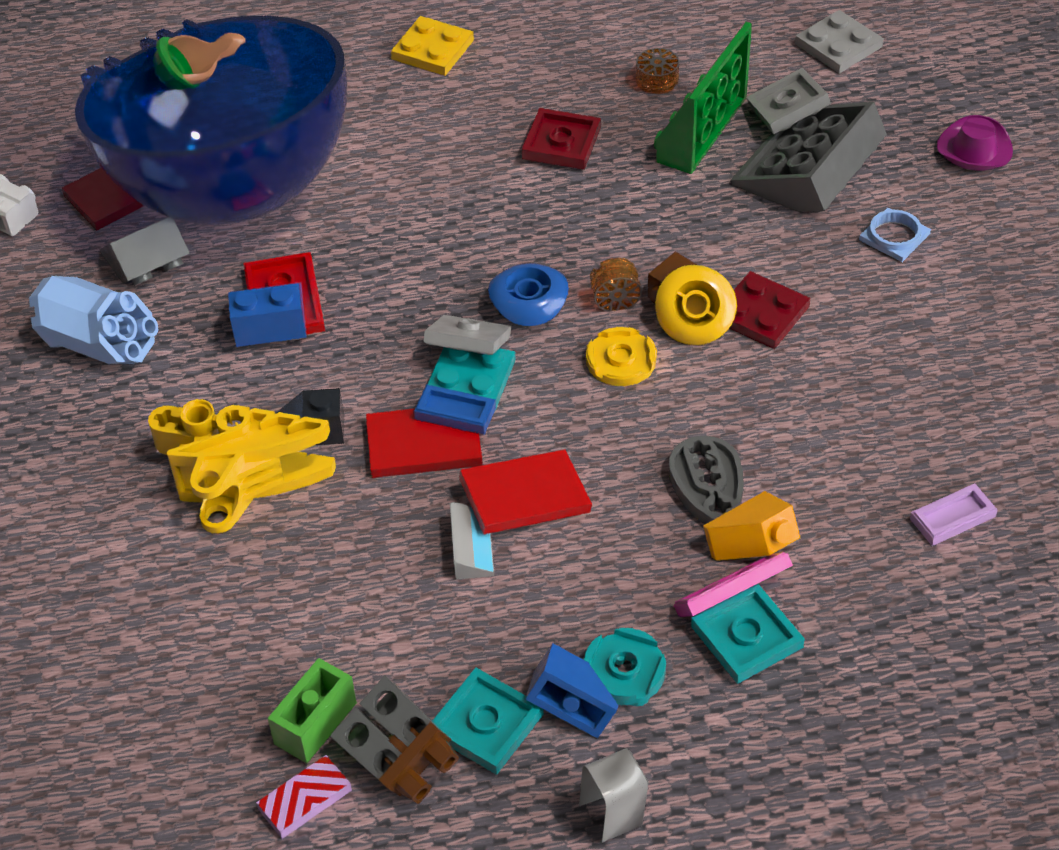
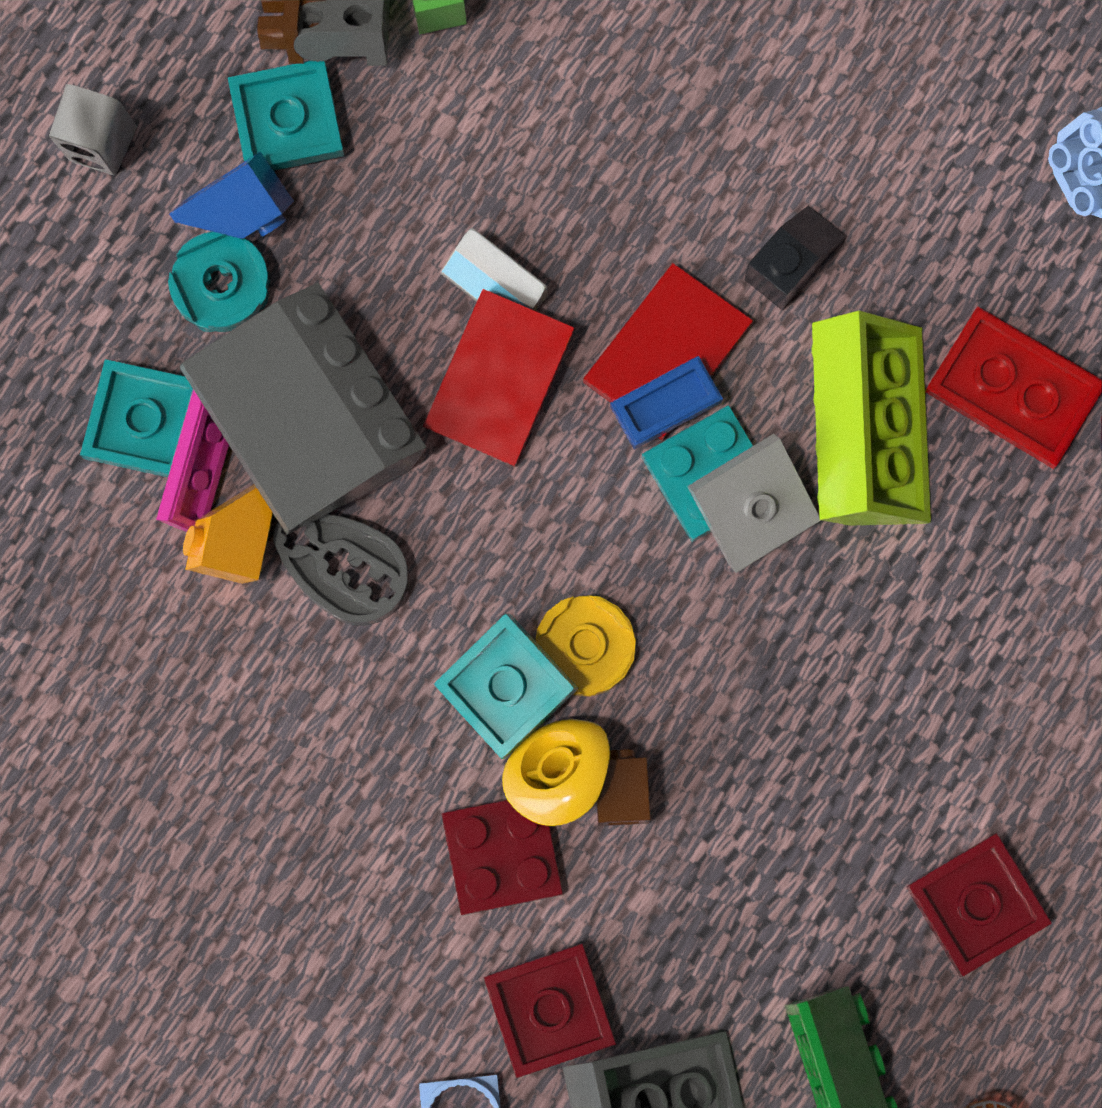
camera: 135 degrees right, 30 degrees up
(237, 463) = (776, 144): yellow piece -> none
(267, 314) = (993, 333): blue slope -> none
(371, 329) = (870, 421): none -> lime slope
(529, 293) = (756, 622): blue hat -> none
(614, 282) = (678, 724): clear orange wheel -> none
(648, 547) = (303, 408): none -> dark grey slope
(682, 359) = (505, 686): none -> teal plate
(807, 236) = (549, 1011): none -> dark red plate
(953, 514) = (72, 752): lavender tile -> none

